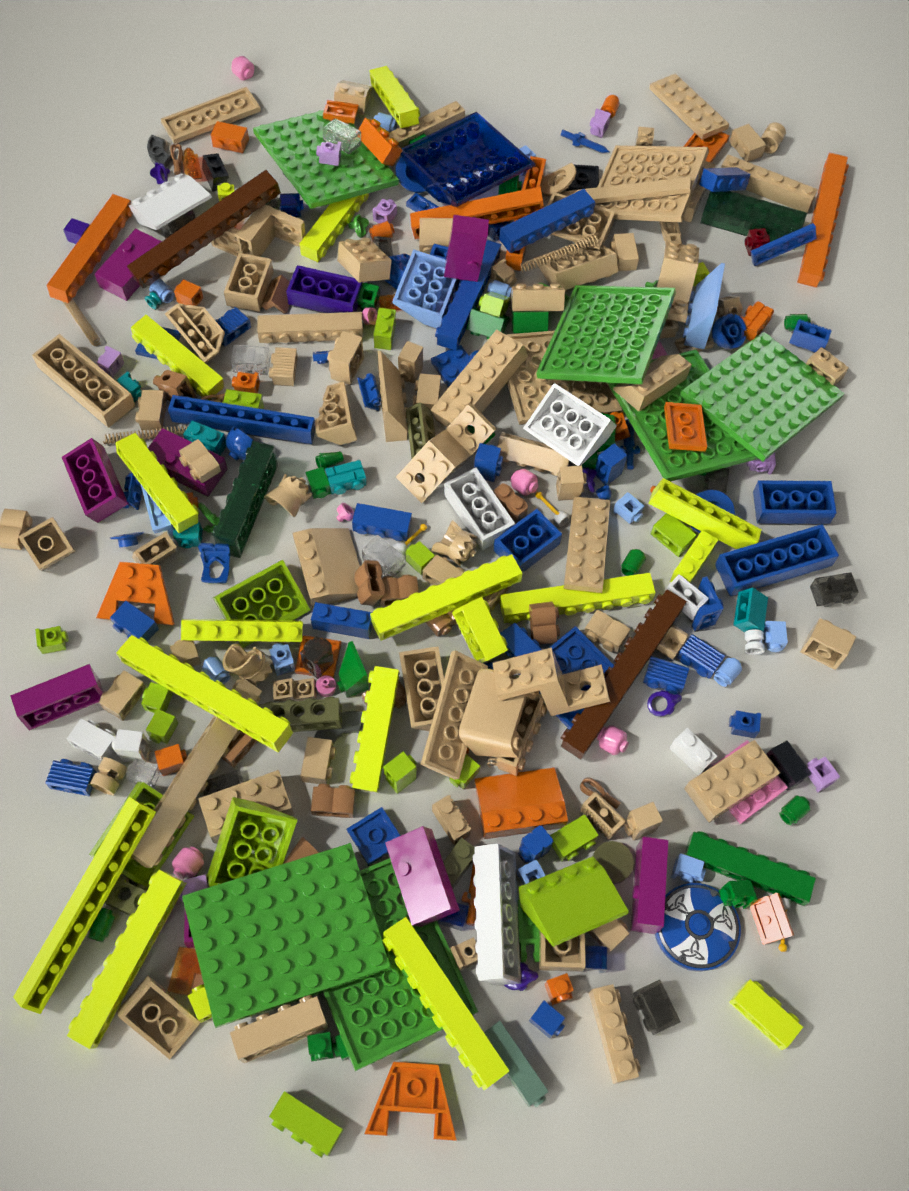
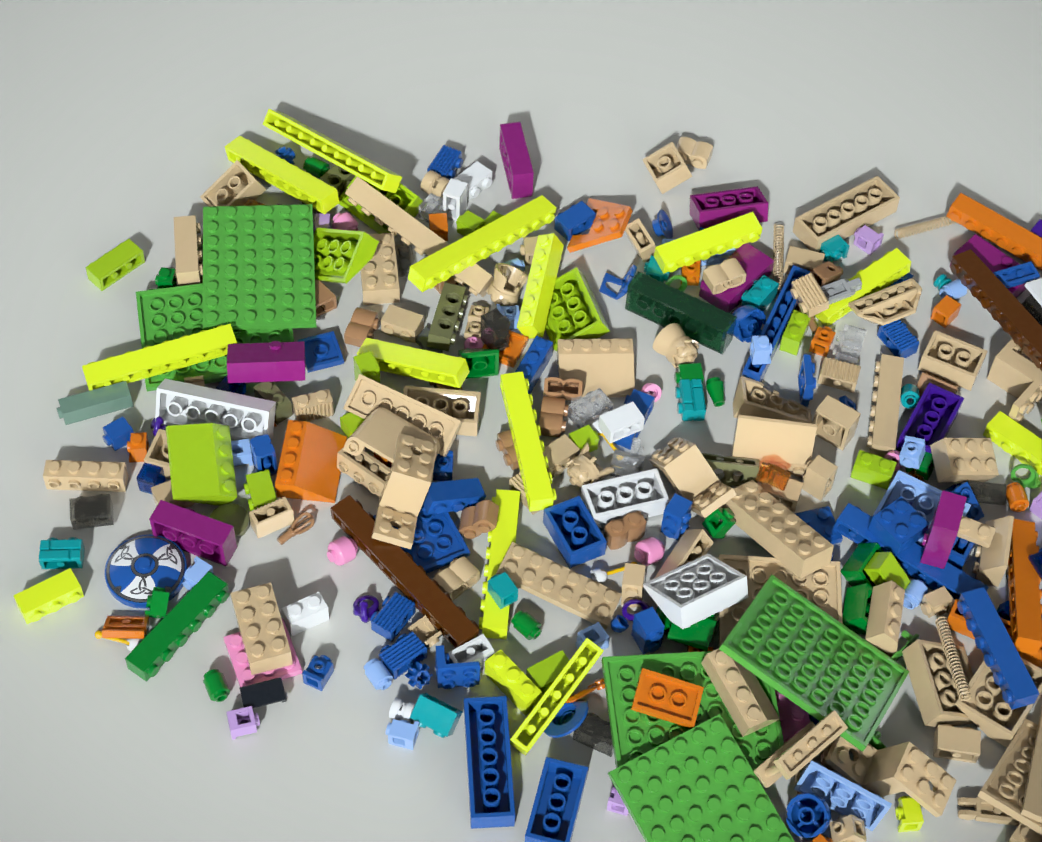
camera: 105 degrees right, 10 degrees down
(51, 639) = (576, 165): lime brick -> none
(89, 968) = (286, 153): none -> blue gear
(122, 695) = (504, 200): tan brick -> none
(145, 234) = (1017, 274): none -> blue hinge
(197, 370) = (841, 289): none -> light grey hinge
(211, 385) = (809, 295): none -> tan brick
(287, 411) = (760, 350): none -> light blue brick
(297, 307) = (909, 396): none -> teal brick
(304, 385) = (806, 380): none -> blue plate
(366, 300) = (912, 452): none -> light blue brick
(401, 520) = (621, 422): none -> white brick
(413, 1090) = (106, 337): orange wing -> none
(425, 392) = (773, 476): none -> clear orange panel
(433, 513) = (628, 462): none -> clear brick
(438, 249) = (976, 532): none -> tan plate
(455, 291) = (898, 526): none -> blue brick
(480, 630) = (482, 456): neon yellow brick -> none
(618, 579) = (502, 590): none -> teal brick
(642, 821) = (252, 545): tan brick -> none
(705, 319) = (800, 749): none -> tan fence
(713, 1021) = (61, 553): none -> teal brick
(716, 636) = (418, 675): none -> blue gear
(828, 644) = (374, 773): tan brick -> none
(834, 589) = (439, 813): clear smoke brick -> none

